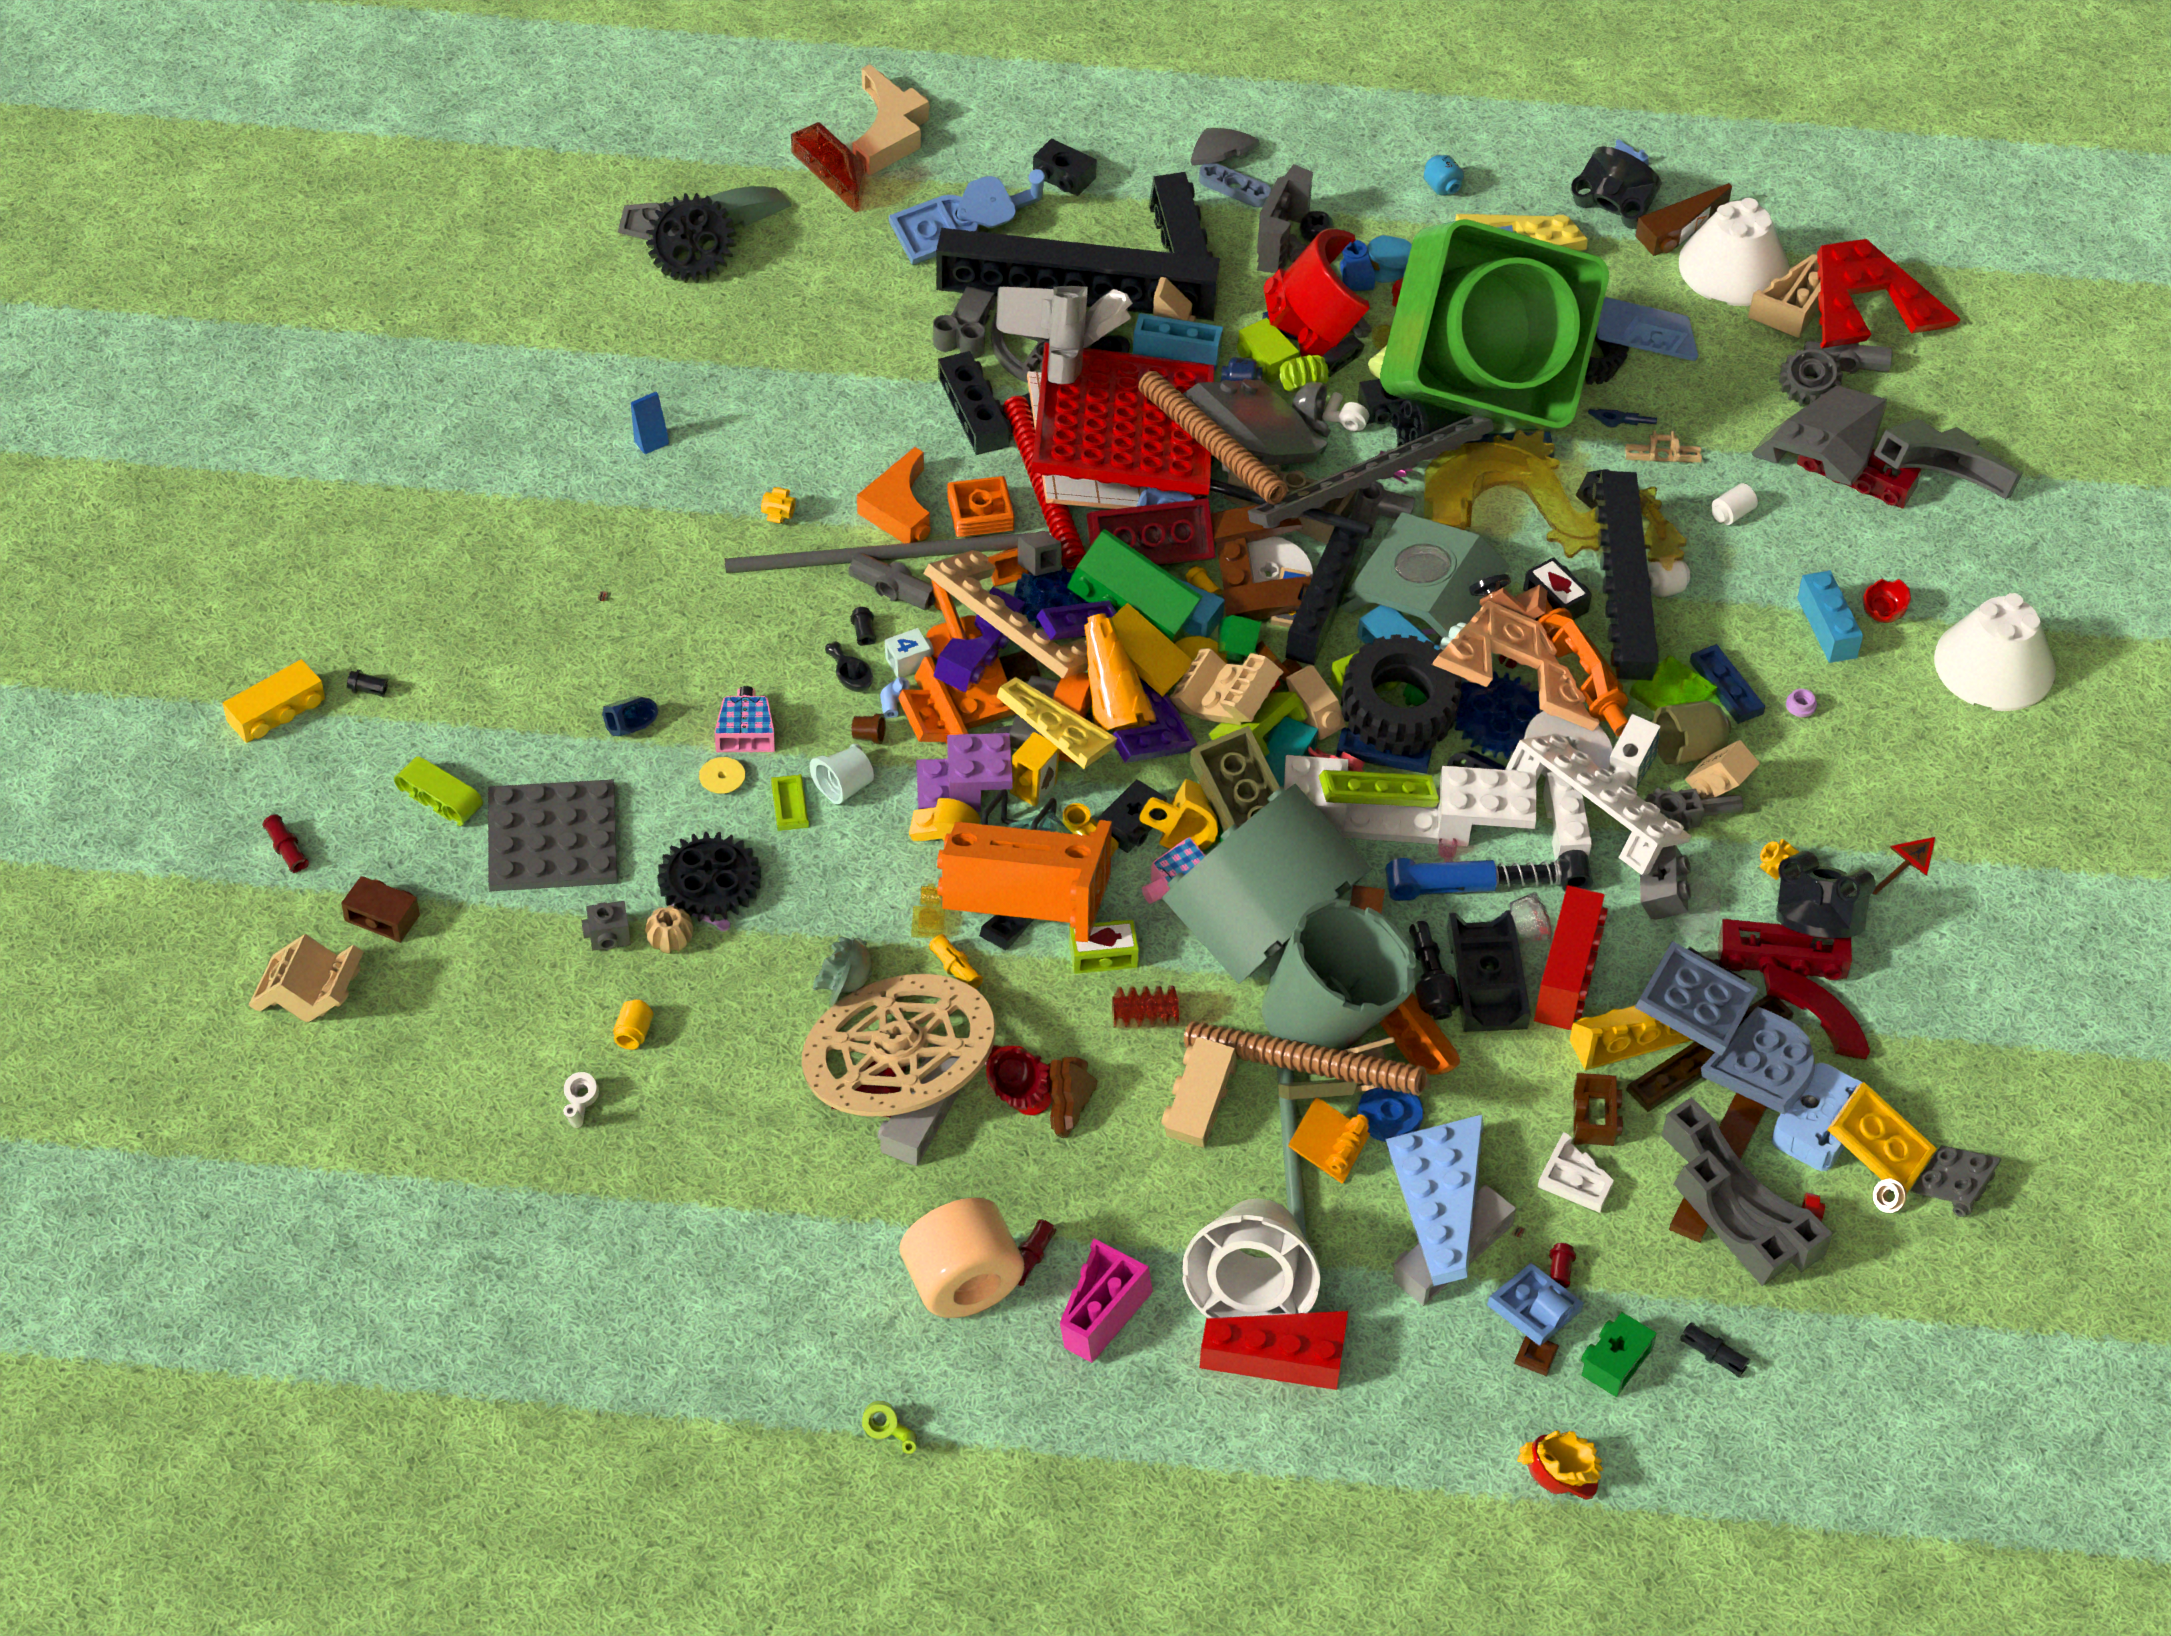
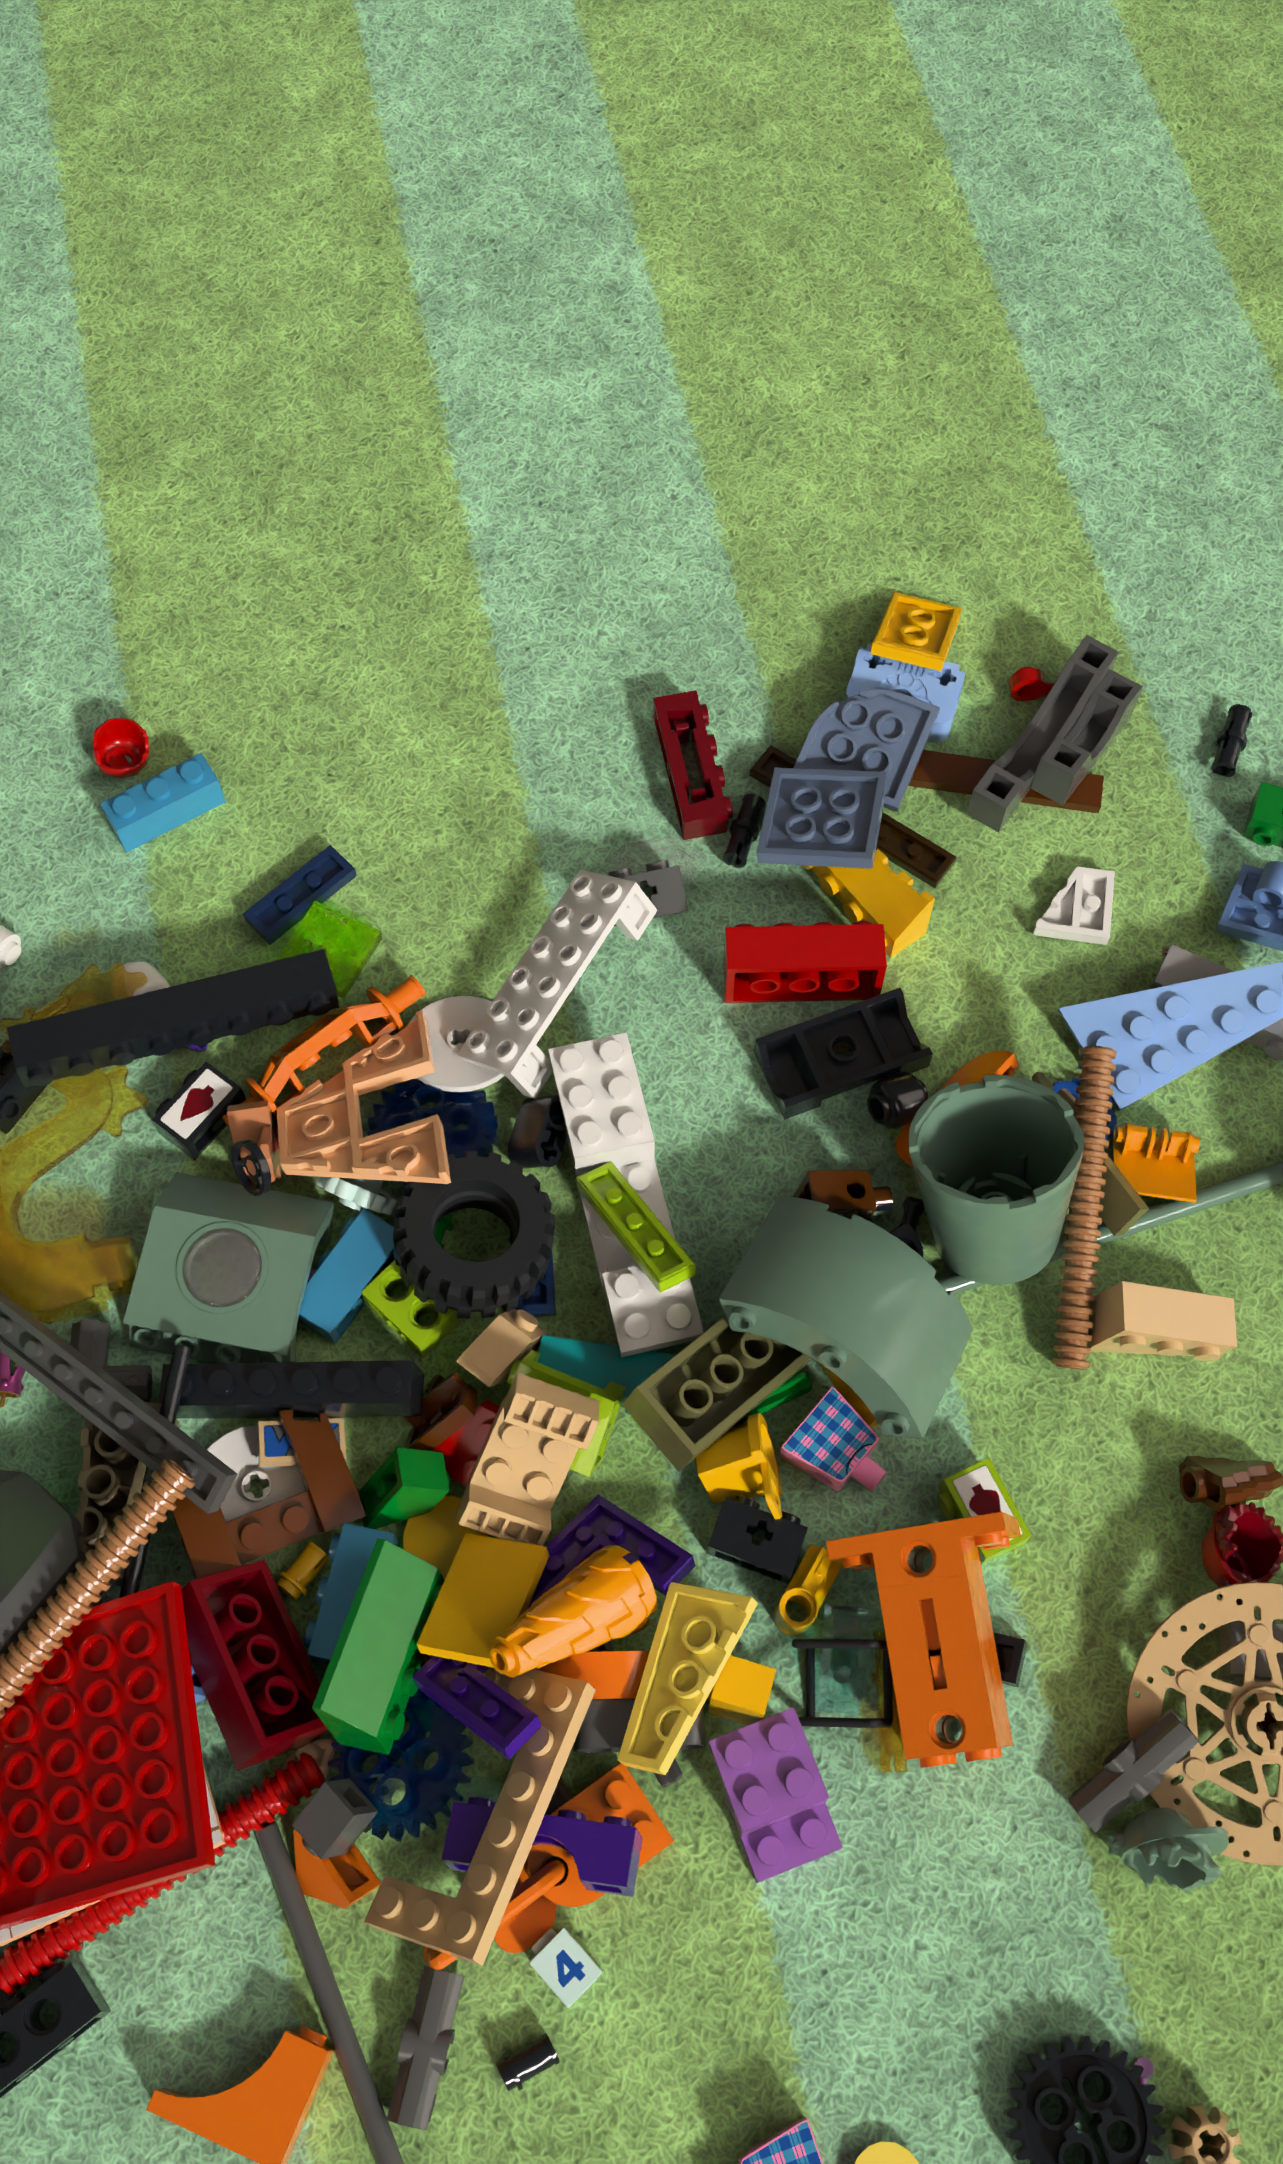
camera: 105 degrees left, 15 degrees up
(789, 802) = (895, 2052): lime tile -> none
(842, 773) = (829, 1980): light aqua hat -> none
(850, 671) = (623, 2049): black piece -> none
(869, 728) = (725, 1976): reddish brown piece -> none
(890, 695) = (646, 1967): light blue arm -> none
(900, 962) = (1133, 1770): none -> dark grey piece
(928, 920) = (1023, 1765): clear yellow plate -> none
(931, 707) = (668, 1887): orange bracket -> none
(937, 821) = (861, 1797): yellow brick -> none
(955, 961) = (1099, 1675): yellow pin -> none
(980, 506) = (209, 1943): orange brick -> none
(1145, 1006) = (1057, 1430): clear red piece -> none
(1353, 763) = (578, 1306): coral plate -> none
(1409, 880) = (732, 1168): piece -> none
(1425, 949) = (834, 1129): black pin -> none
(1447, 852) = (676, 1143): clear pink hand -> none
(1531, 918) = (751, 1021): clear hair -> none
(1562, 1258) = (1200, 898): dark red pin -> none
(1568, 814) = (603, 1006): white arch -> none
(1597, 1087) = (996, 885): reddish brown window -> none
(1634, 751) = (461, 963): white torso -> none
(1689, 809) = (515, 897): dark grey gear -> none
(1691, 731) = (406, 908): olive cylinder -> none
(1722, 770) = (464, 860): tan brick -> none
(1773, 854) = (554, 794): yellow gear -> none
(1804, 697) = (306, 805): lavender plate -> none
(1822, 898) = (633, 723): black piece -> none
(1834, 1016) = (744, 727): dark red tile -> none
(1880, 1195) = (975, 621): plate -> none
(1914, 853) = (497, 672): piece -> none
(1957, 1177) = (924, 565): dark grey hinge -> none
(1997, 656) = (178, 632): white cone -> none

